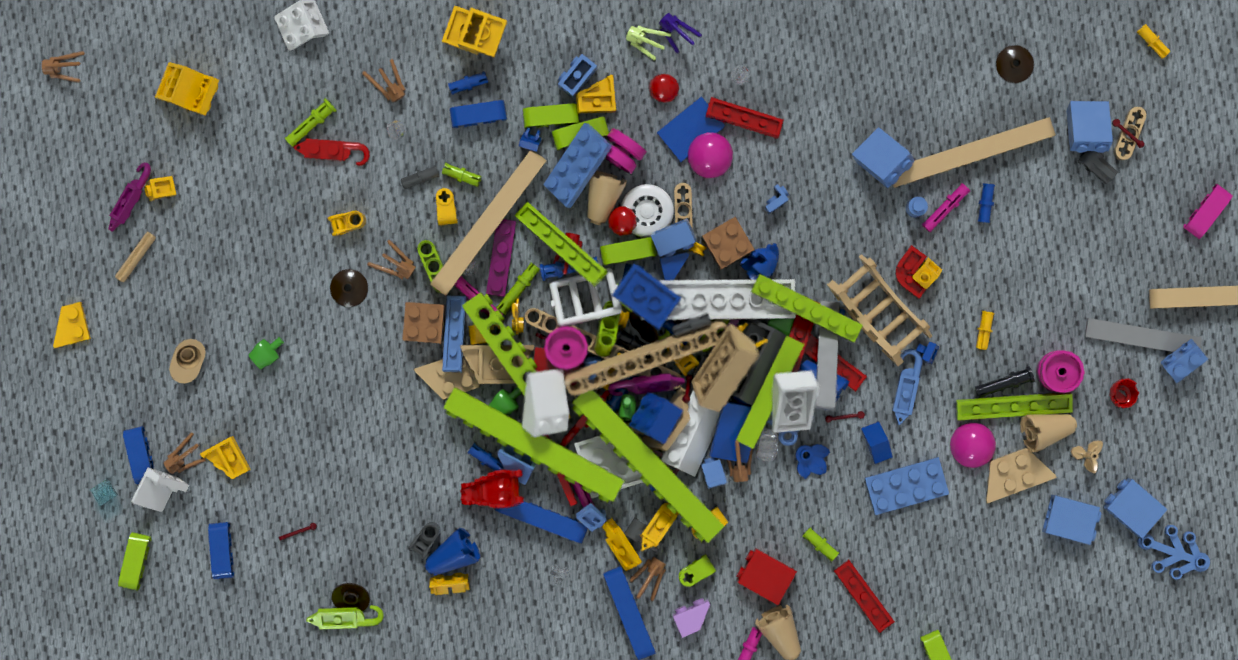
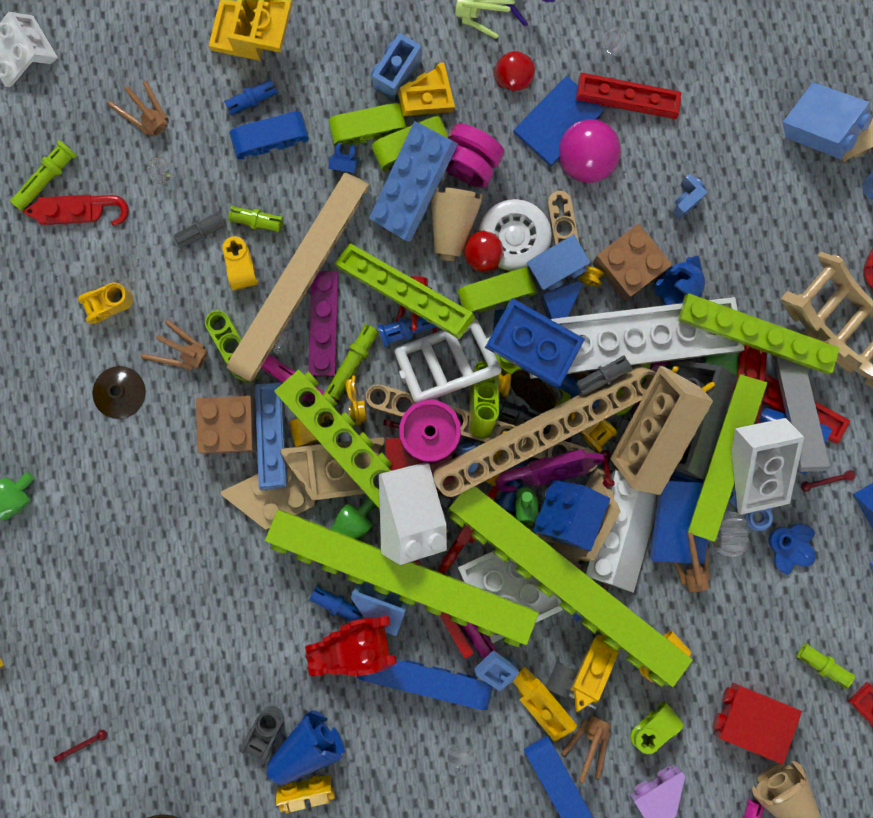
camera: 10 degrees left, 5 degrees down
(713, 472) = (661, 584): medium blue slope -> none

